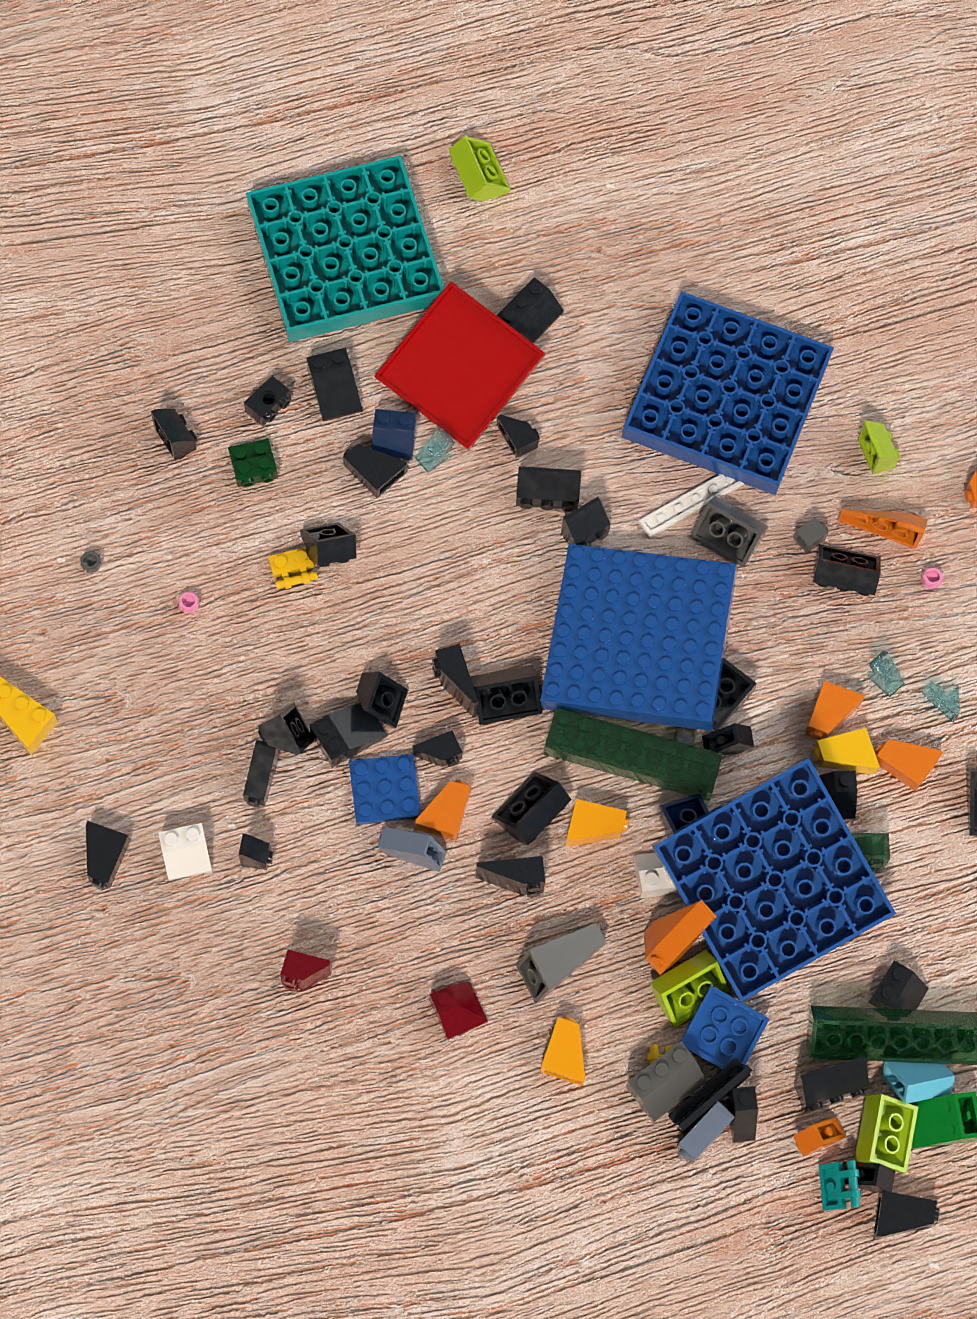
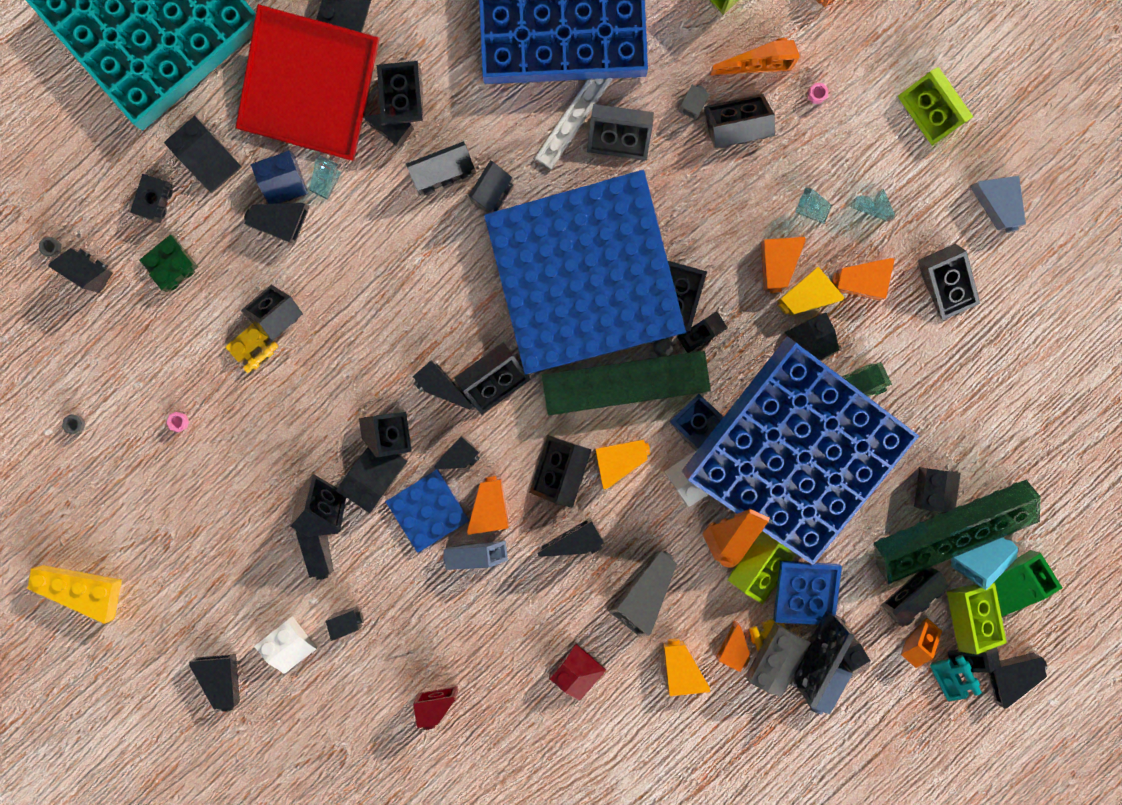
camera: 15 degrees left, 20 degrees up
(152, 400) = (50, 247): none -> dark grey tile
(542, 407) = (400, 92): none -> black slope
(626, 1056) = (734, 649): none -> orange slope

